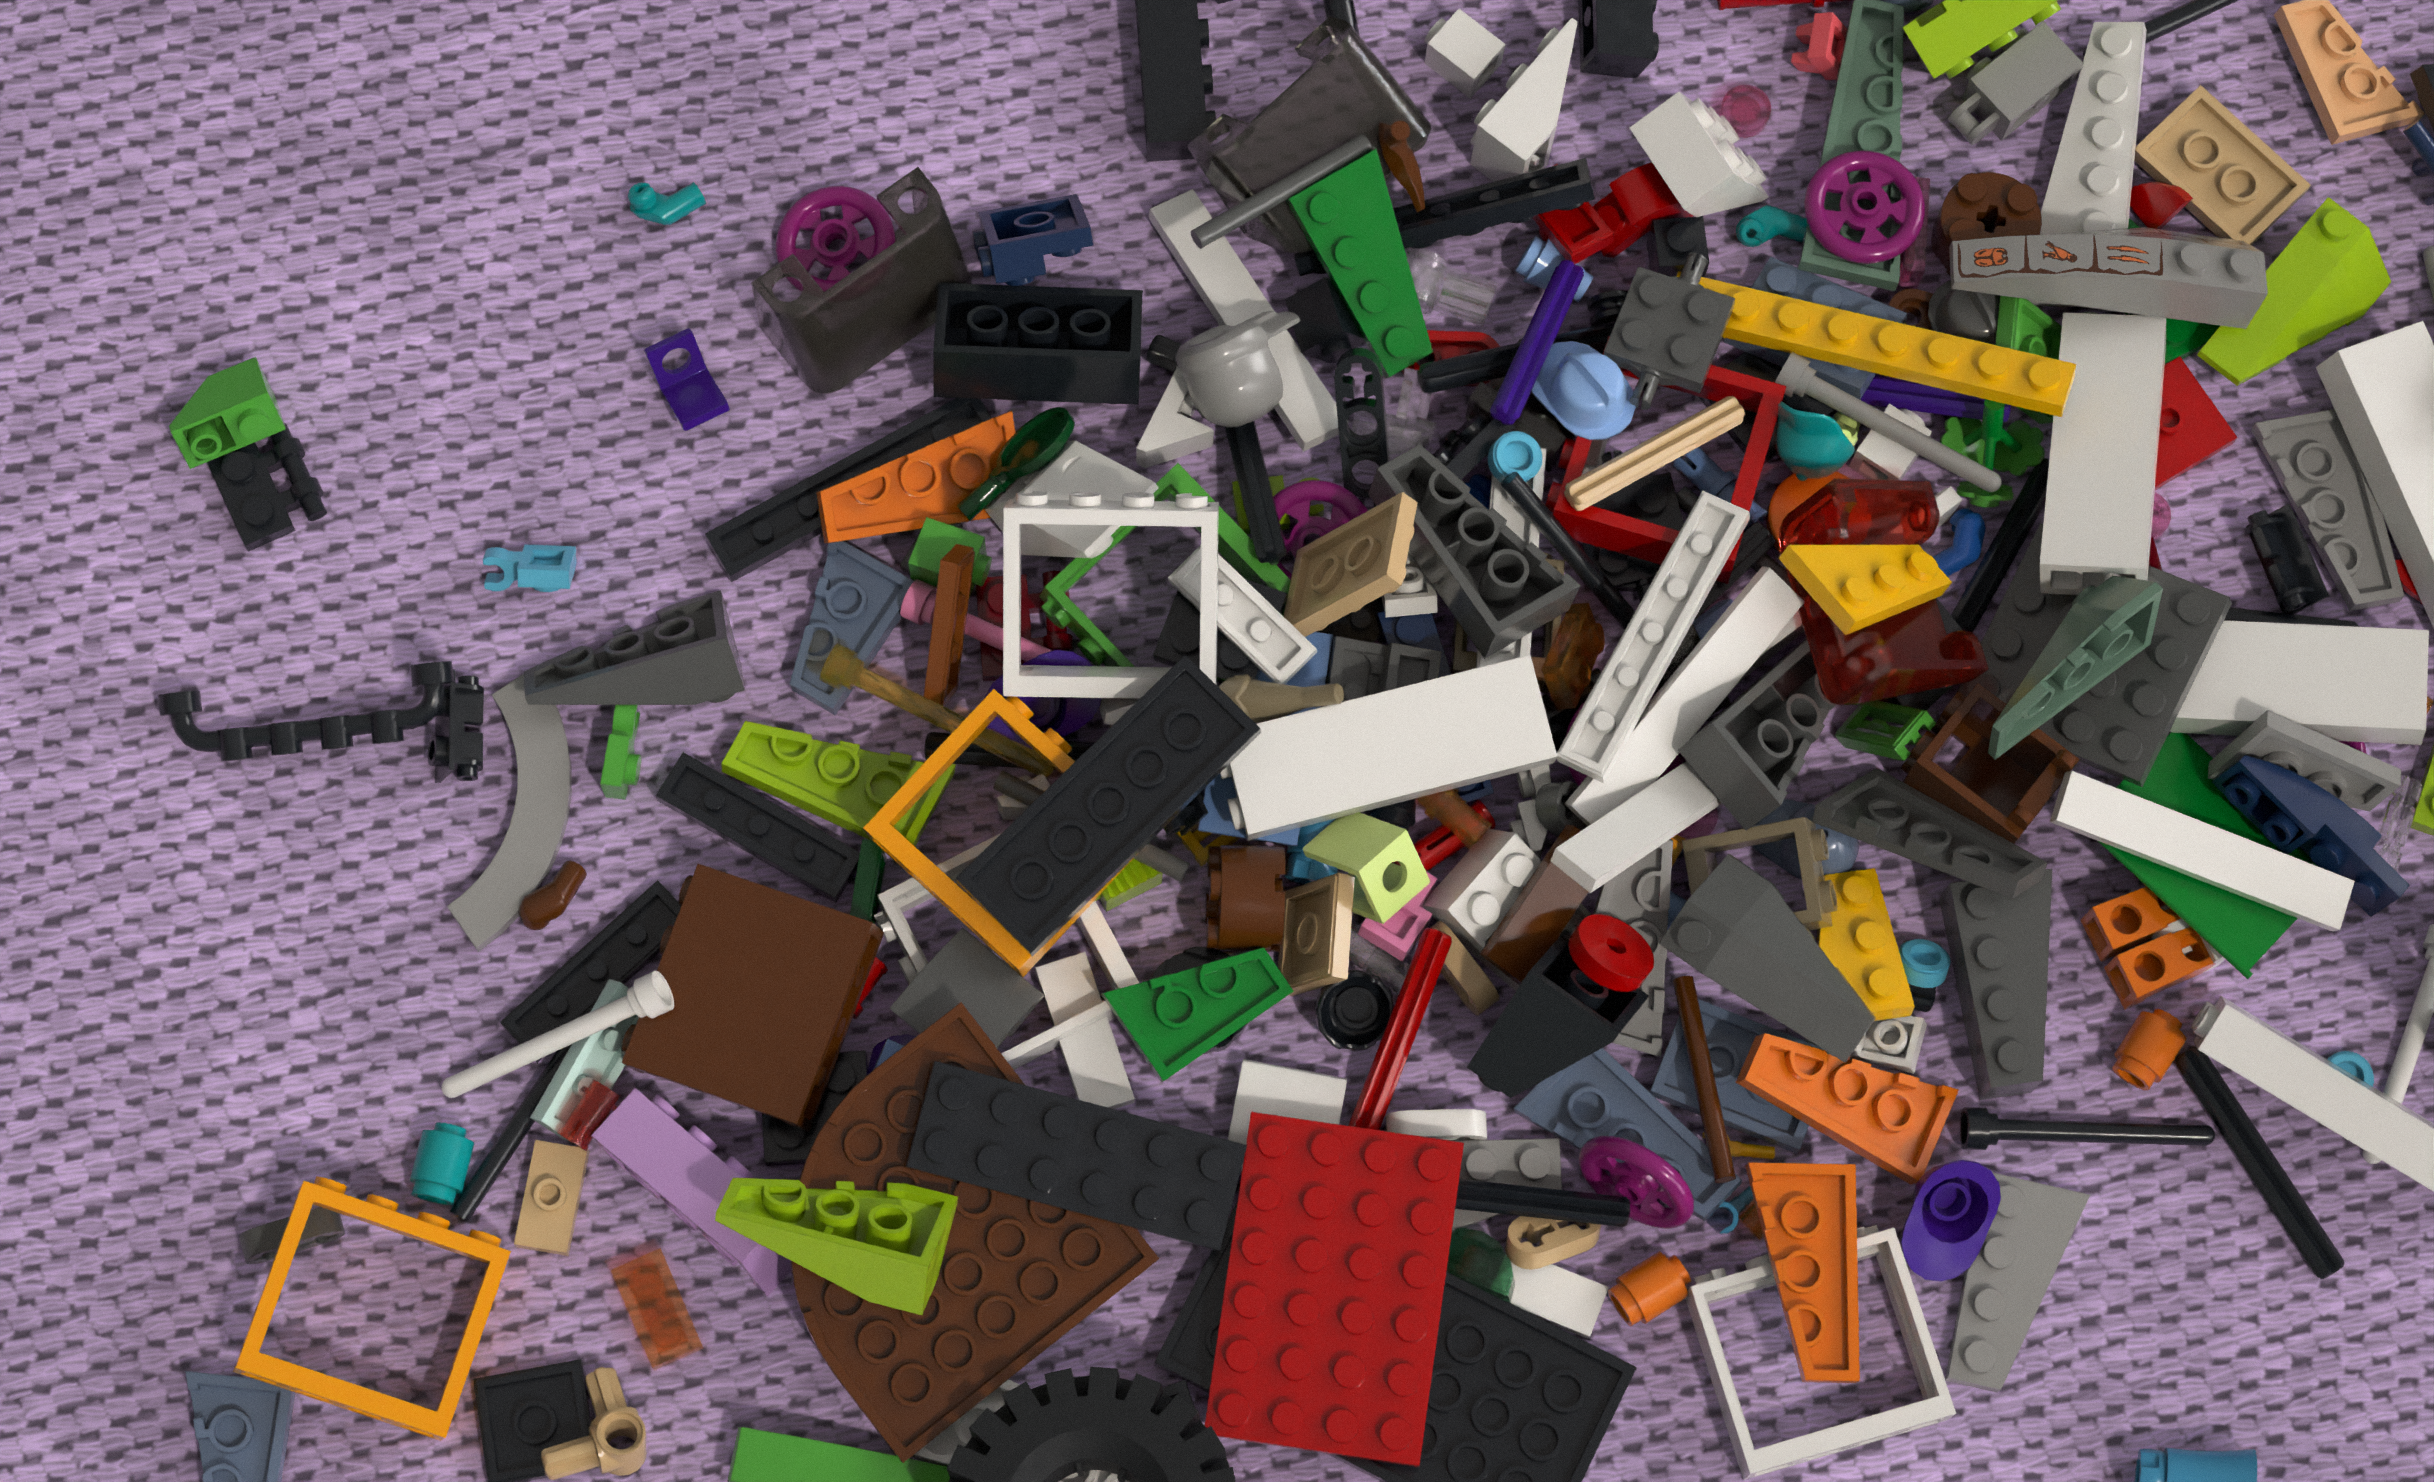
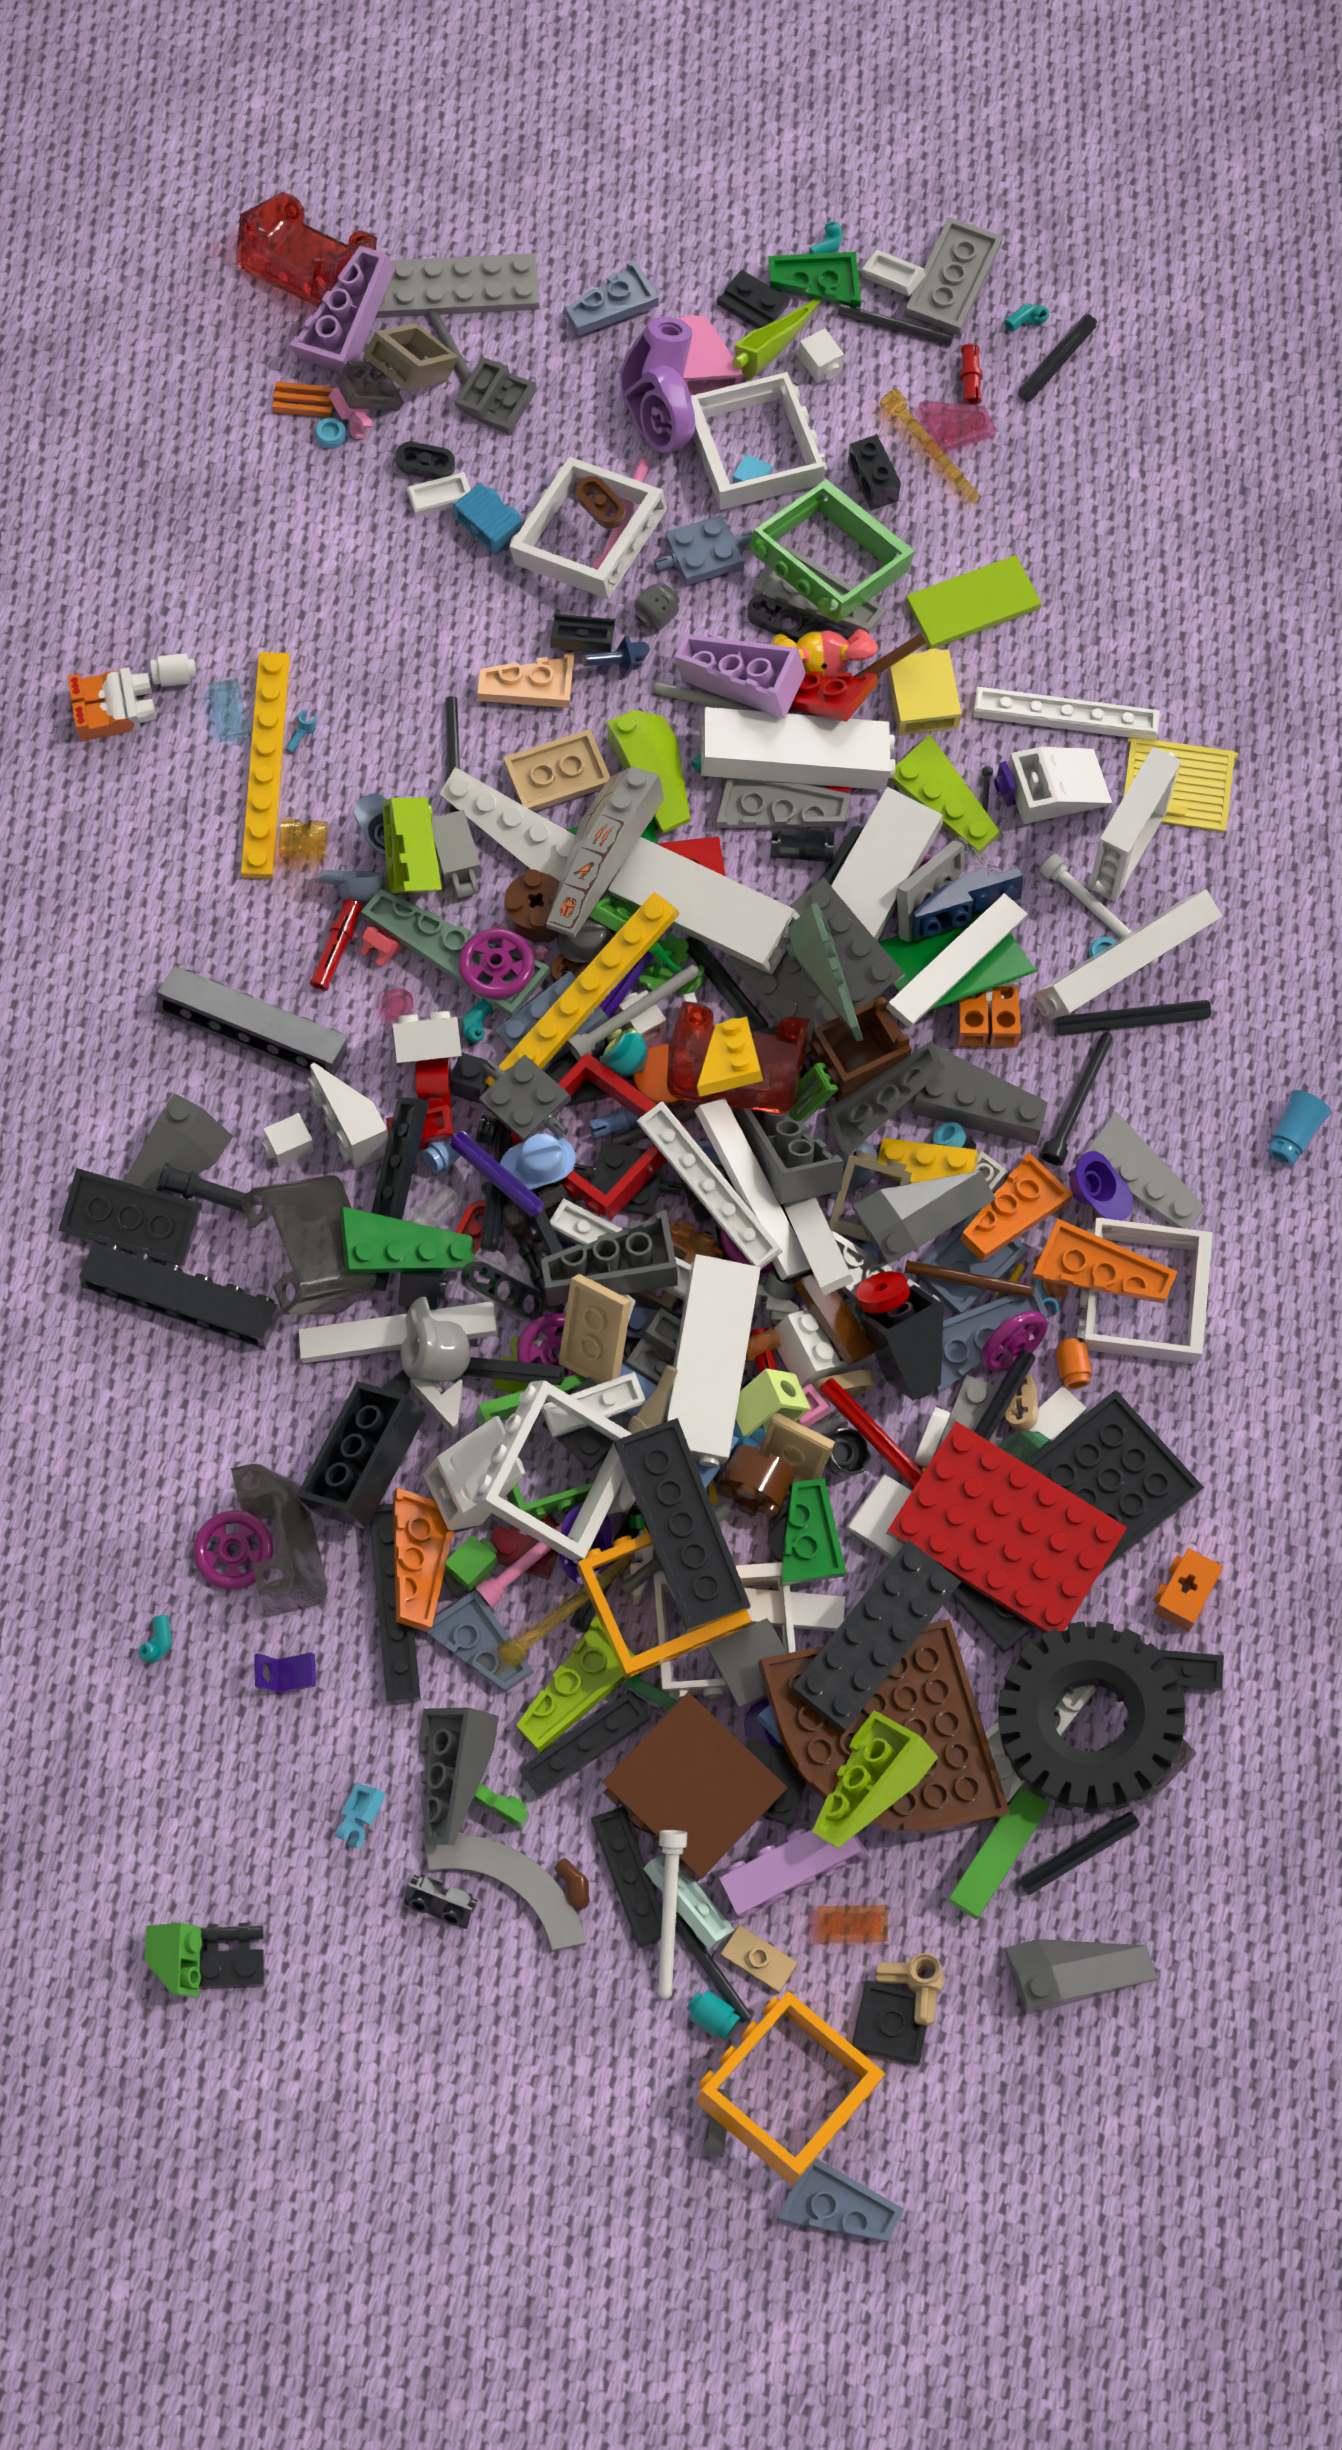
camera: 65 degrees left, 5 degrees down
(332, 731) = (401, 2004): black bar -> none
(589, 1114) = (722, 1910): clear red pin -> none
(949, 624) = (517, 1576): dark orange tile -> none
(1019, 235) = (290, 1431): dark blue plate -> none
(1022, 454) = (428, 1491): dark green piece -> none
(1281, 191) = (341, 1271): dark grey bar -> none
(1402, 160) = (349, 1199): reddish brown bar -> none
(1515, 453) = (564, 1216): medium azure tile -> none
(1568, 548) = (630, 1212): black bar -> none
(1654, 453) = (598, 1138): tan axle -> none
(1967, 542) = (715, 1003): blue arm -> none
(2149, 1048) = (1048, 1043): orange brick -> none
(2158, 202) = (562, 811): red tile -> none

